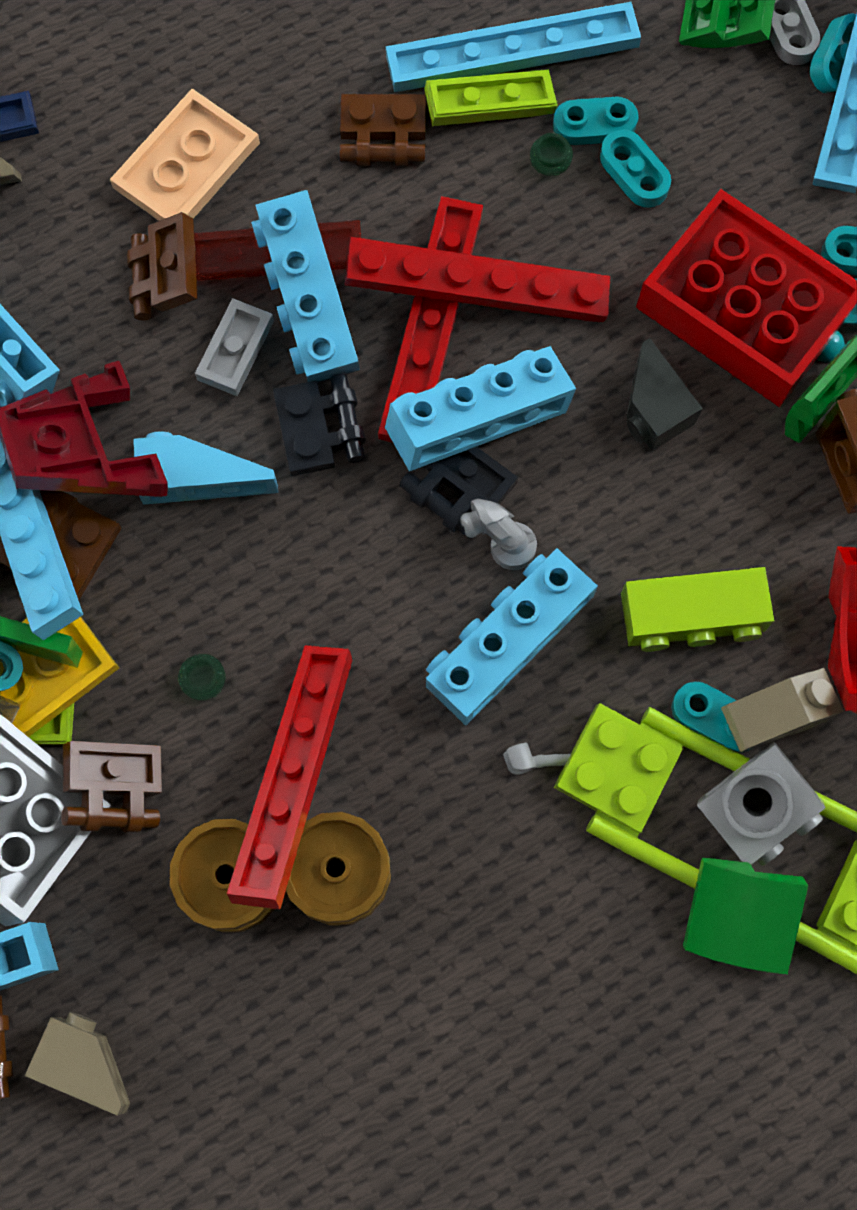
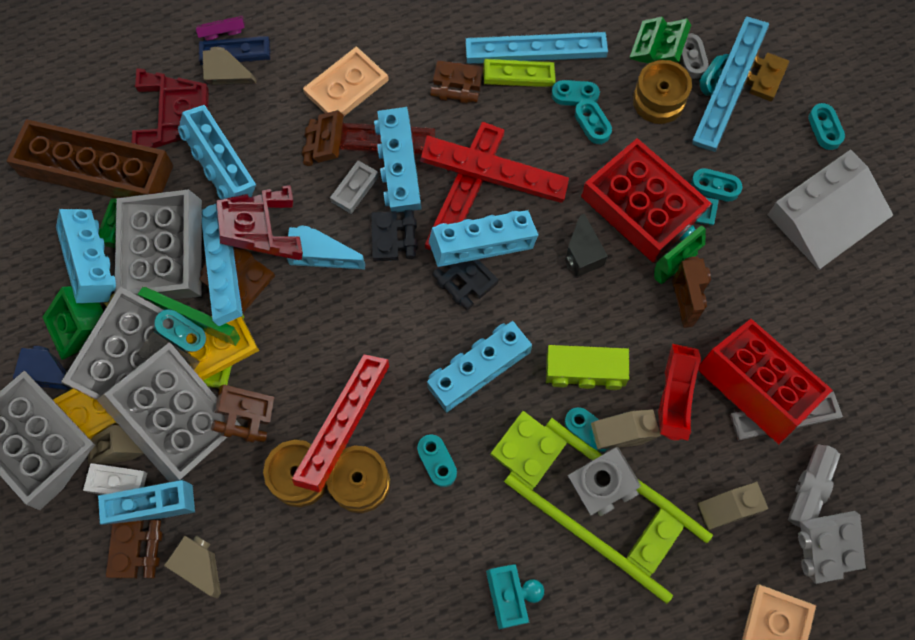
camera: 10 degrees right, 5 degrees down
(202, 677) = (304, 363): clear green plate -> none
(464, 812) = (437, 459): none -> teal plate
(511, 543) = (489, 314): light grey arm -> none
(520, 760) = (473, 436): light grey hand -> none
(551, 154) = (547, 108): clear green plate -> none
(629, 1025) = (509, 595): none -> teal plate
(745, 916) = (585, 542): green slope -> none
(748, 97) = (662, 91): none -> pearl gold wheel

